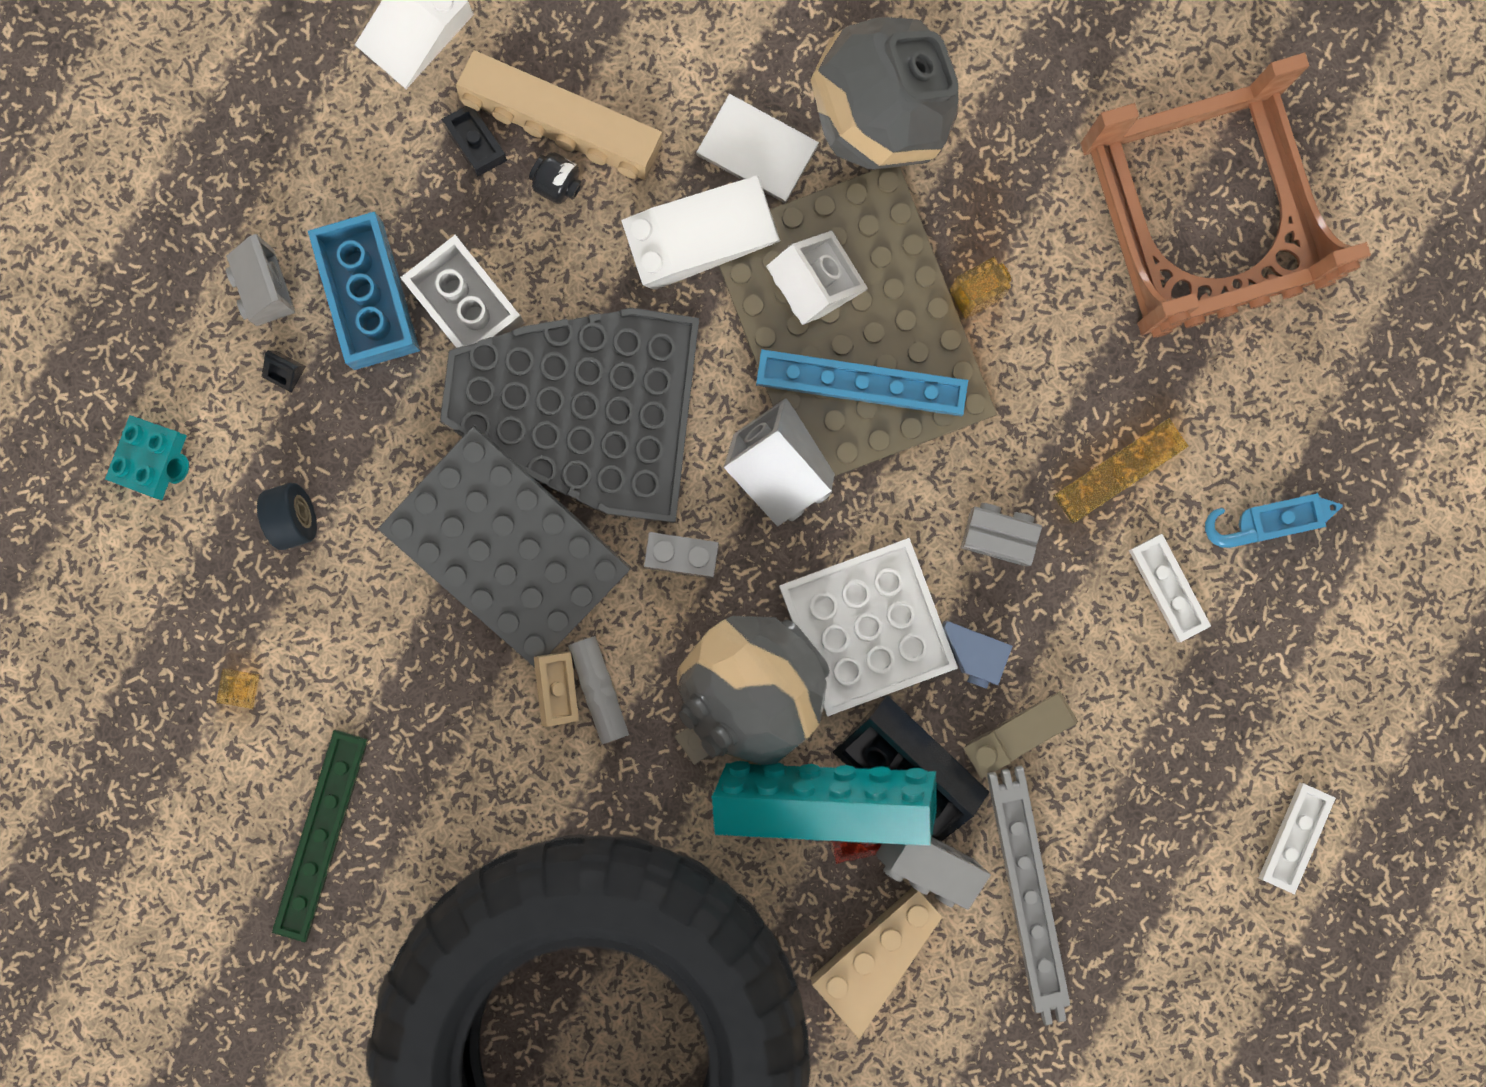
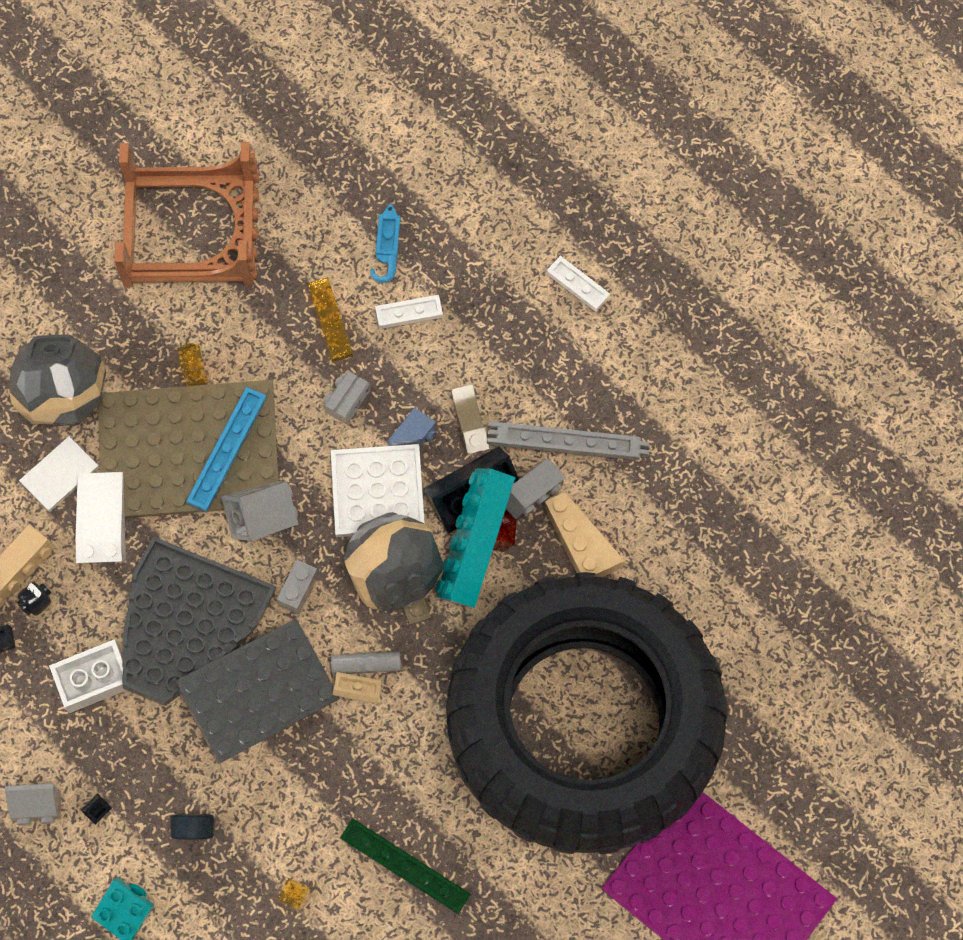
camera: 70 degrees left, 15 degrees down
(363, 291) = (64, 737): dark azure brick -> none
(816, 276) = (152, 457): white slope -> none

